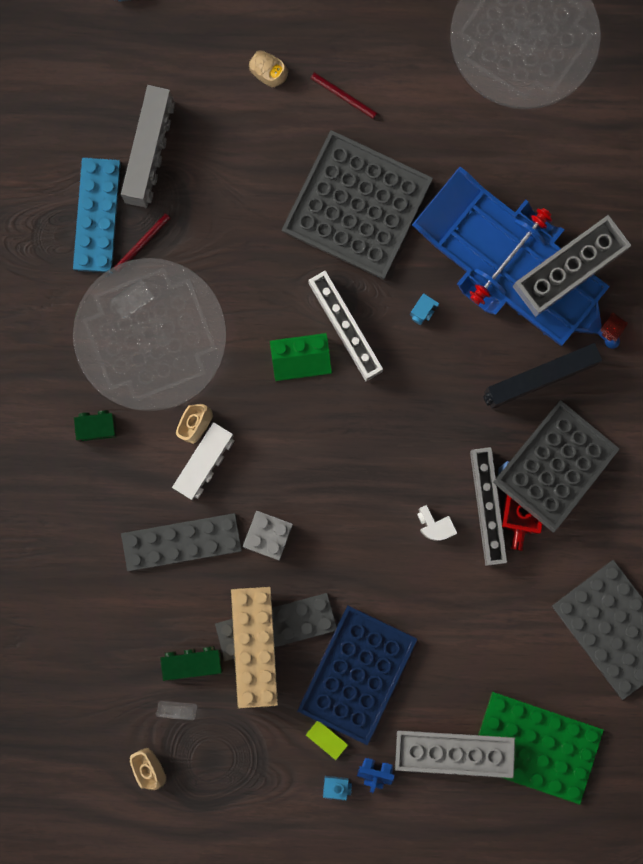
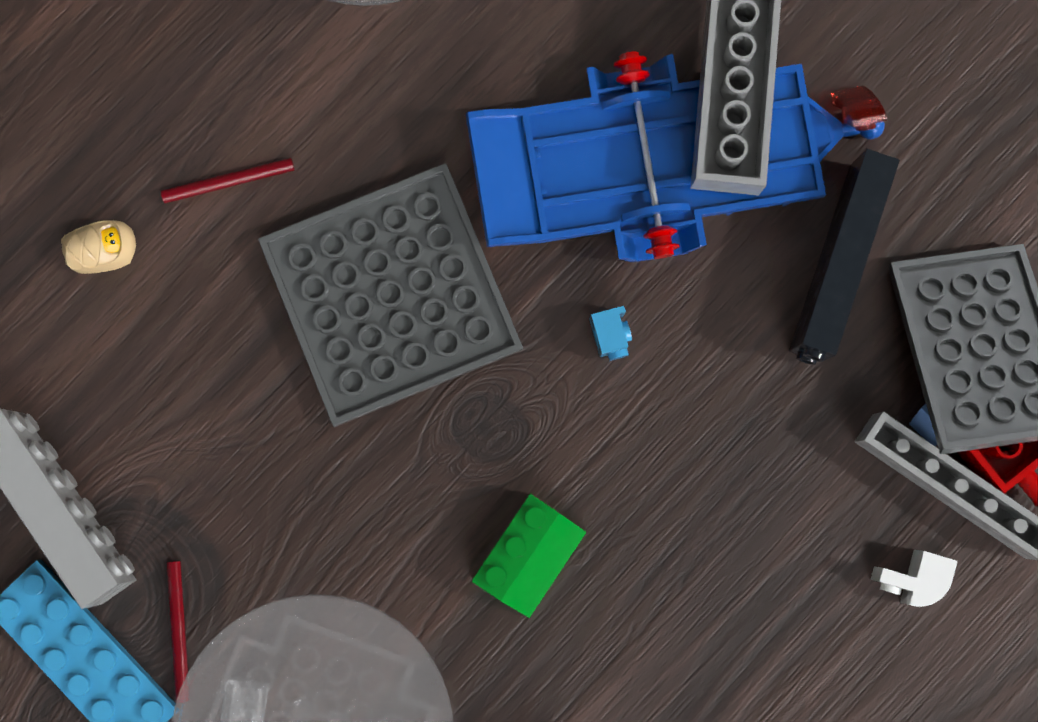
camera: 50 degrees left, 0 degrees up
(345, 326) = (542, 458): white brick -> none

